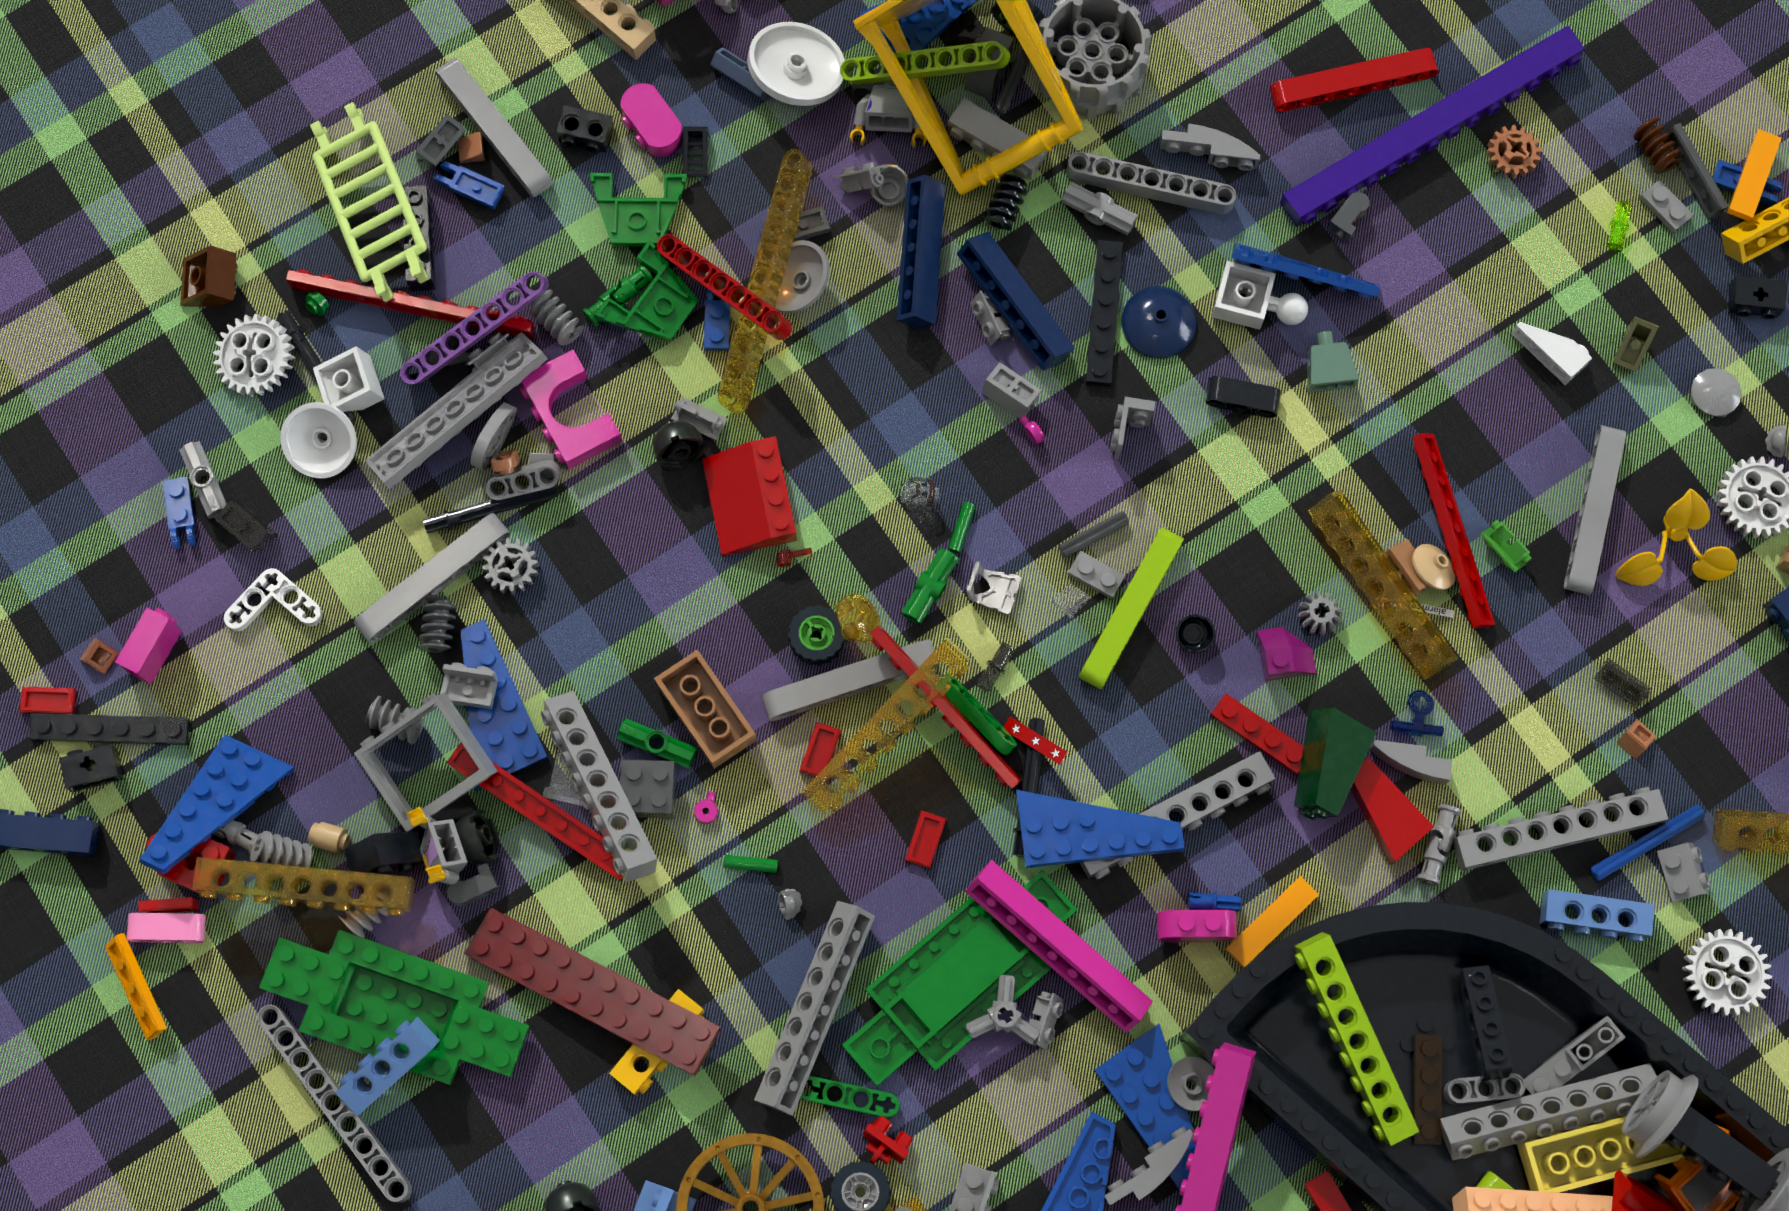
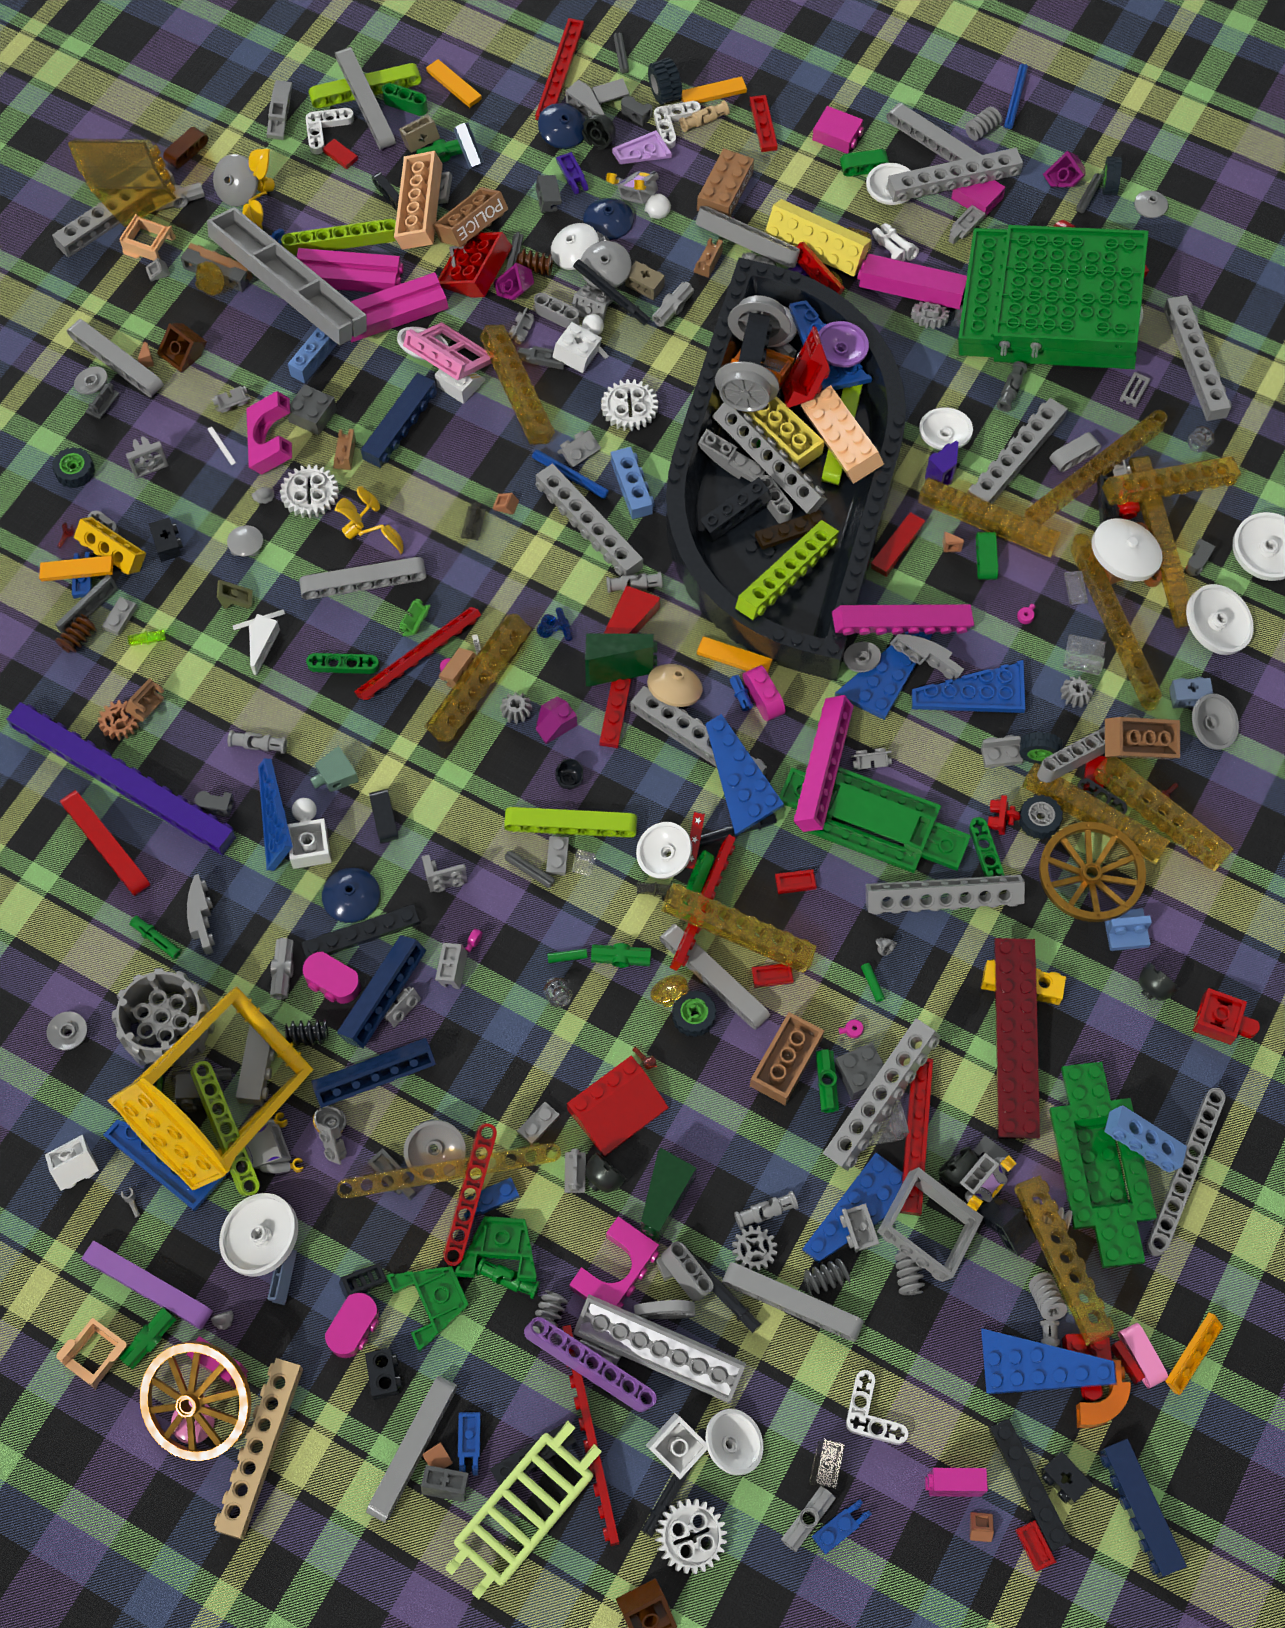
camera: 115 degrees left, 10 degrees down
(131, 846) = (1097, 1414): none -> orange arch
(316, 303) = (624, 1510): green plate -> none
(329, 837) = (1015, 1274): tan brick -> none
(505, 461) = (680, 1288): nougat plate -> none
(546, 600) = (769, 1208): none -> light grey piece
(622, 498) = (667, 1189): none -> dark green slope
(776, 405) = (538, 1123): none -> light grey plate
(1001, 590) = (600, 909): piece -> none
(1015, 1022) = (885, 777): light grey bush -> none
(1039, 685) = (655, 845): none -> white dish
(1060, 255) = (331, 978): none -> dark pink brick
(1162, 178) = (246, 933): light grey beam -> none
(1214, 87) = (148, 932): none -> green pin
(1246, 817) = (674, 685): none -> tan dish
(1412, 294) = (258, 742): none -> light grey piece
(1413, 761) = (587, 612): light grey slope -> none
(1433, 567) = (450, 653): tan dish -> none
(1480, 437) = (342, 666): none -> green beam
(1524, 186) = (145, 700): none -> medium nougat hinge
(1591, 366) = (247, 623): none -> white sticker

